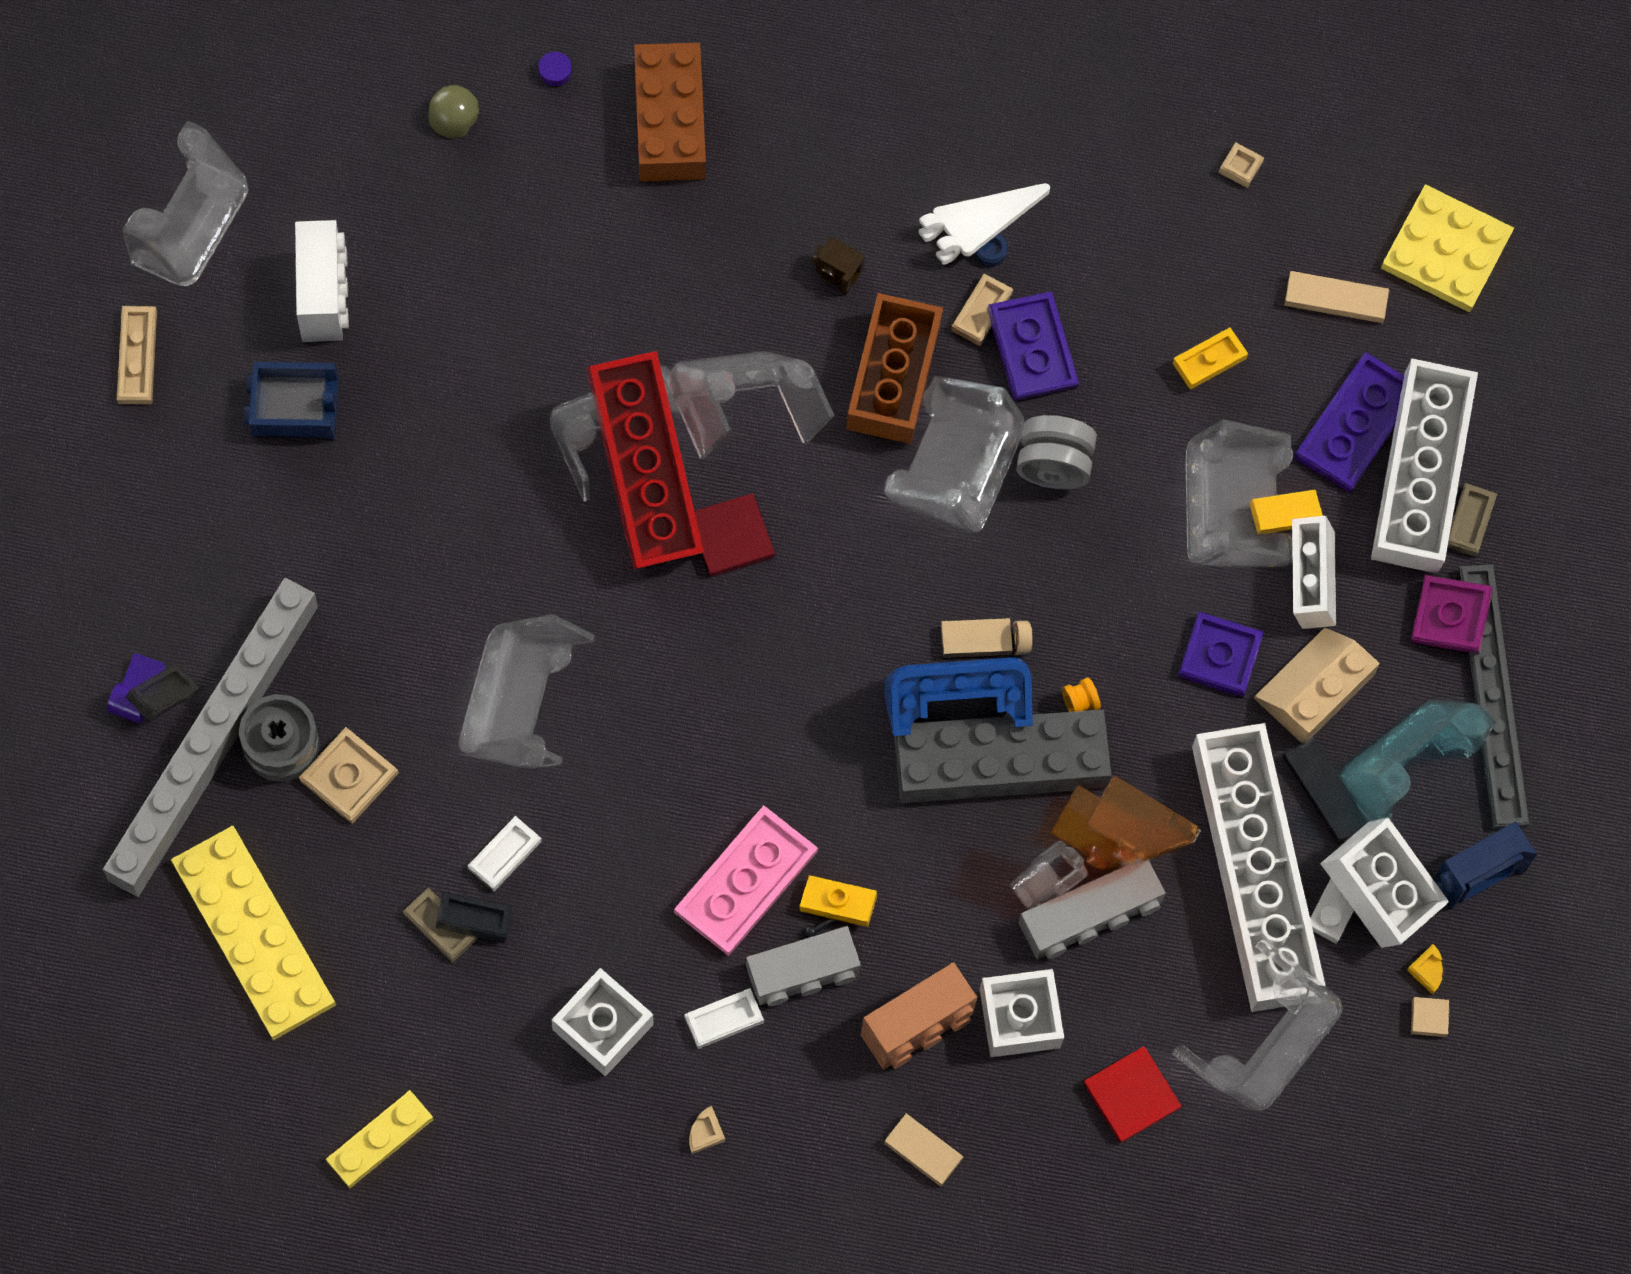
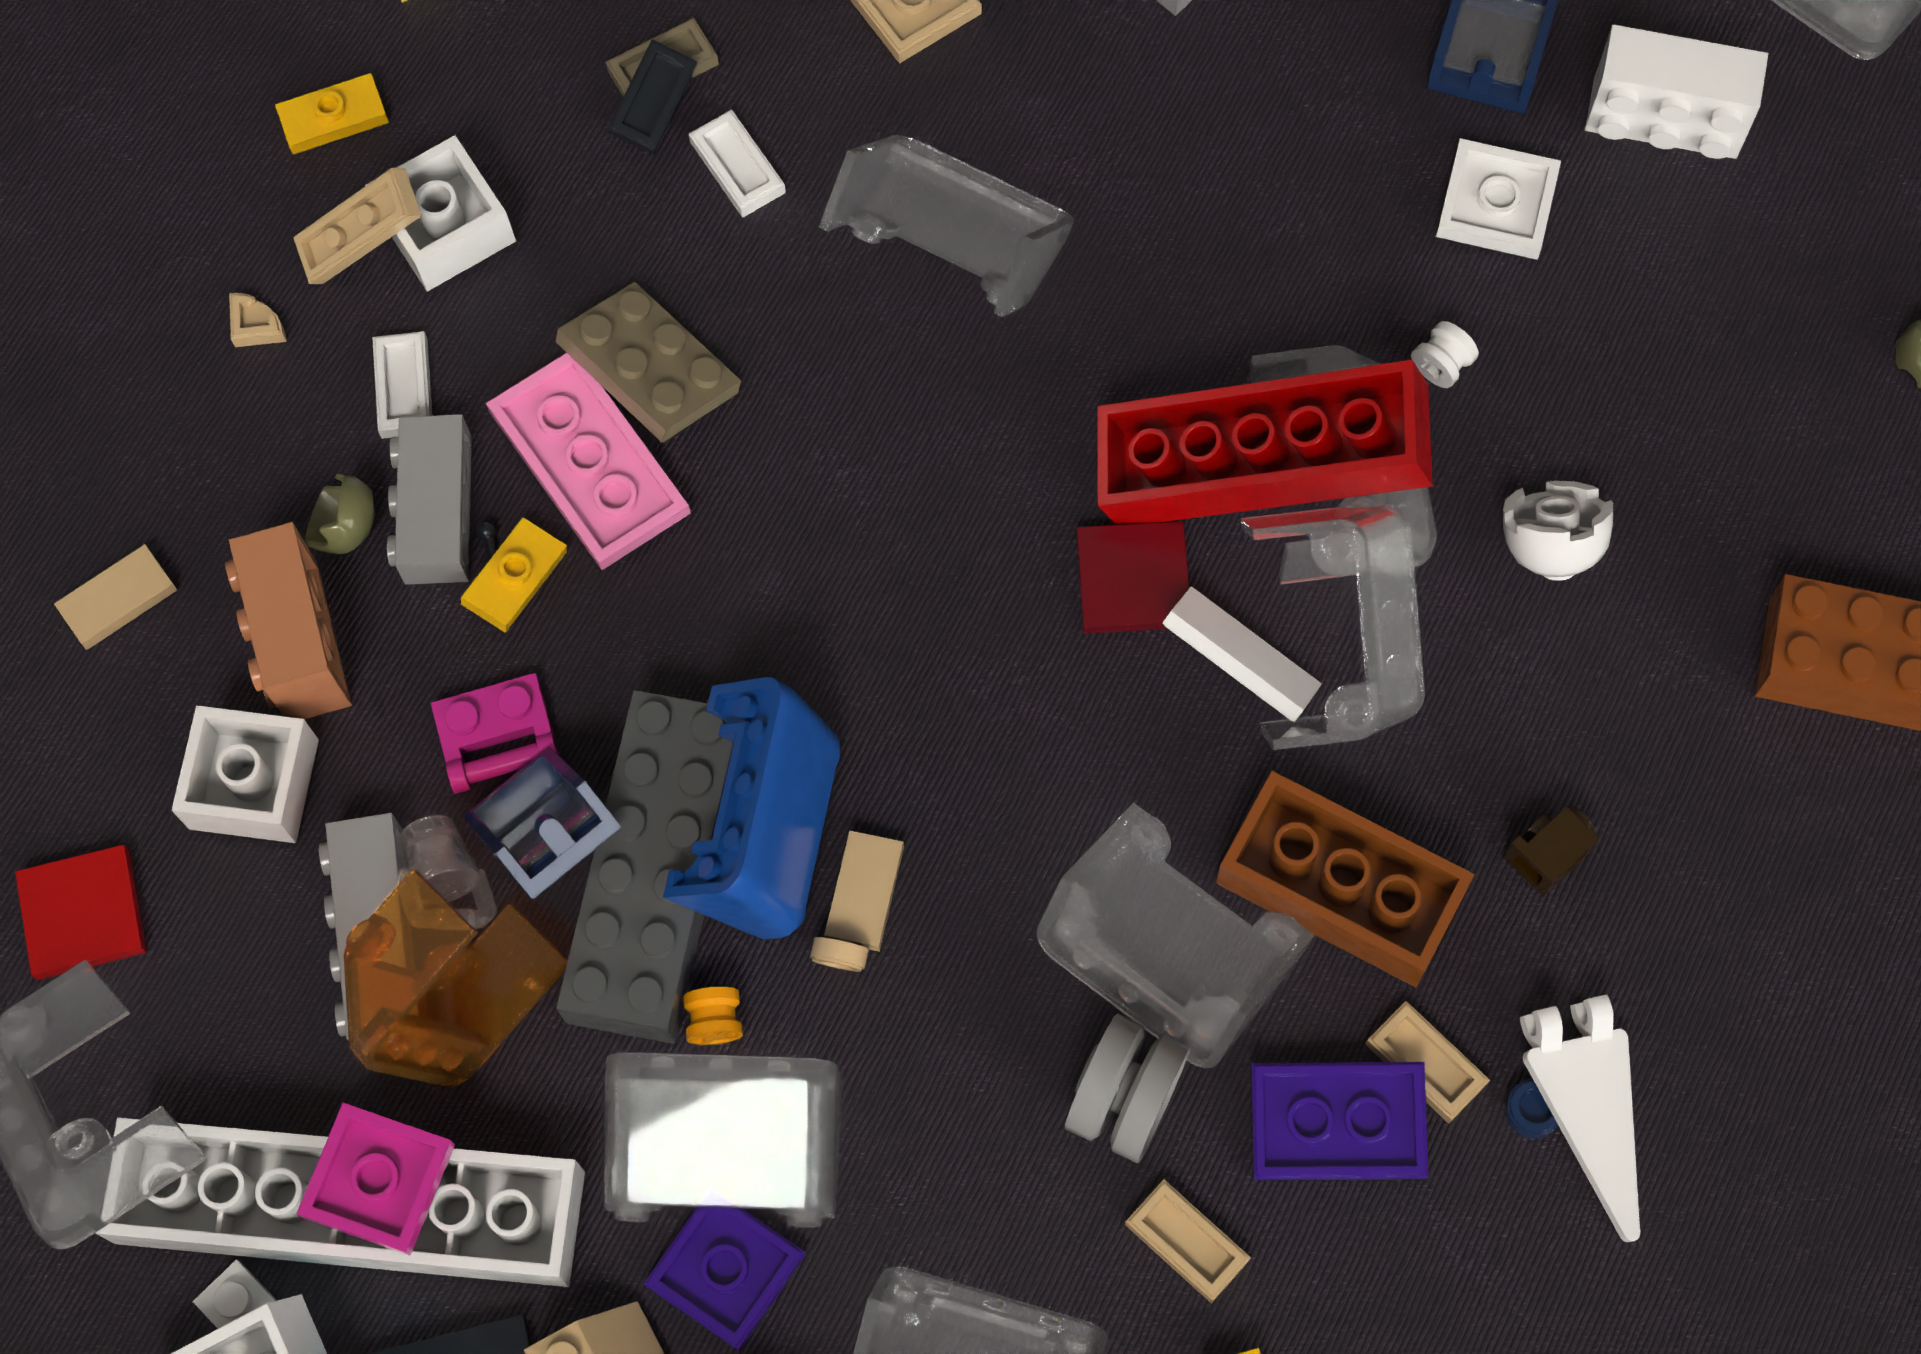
camera: 115 degrees right, 0 degrees up
(412, 377) = (1498, 199): none -> white plate
(533, 385) = (1445, 354): none -> white wheel
(536, 1133) = (331, 113): none -> yellow plate
(633, 1066) = (357, 226): none -> tan tile
(638, 294) = (1558, 529): none -> white cylinder
(669, 861) = (648, 361): none -> dark tan plate
(769, 456) = (1242, 654): none -> white tile
(833, 1020) = (341, 516): none -> olive hair
(934, 889) = (491, 718): none -> dark pink plate
(1001, 819) = (542, 822): none -> dark blue window
(1124, 412) = (1187, 1241): none -> tan tile
(1154, 669) = (721, 1134): none -> clear windscreen
(1247, 833) = (376, 1179): none -> dark pink plate

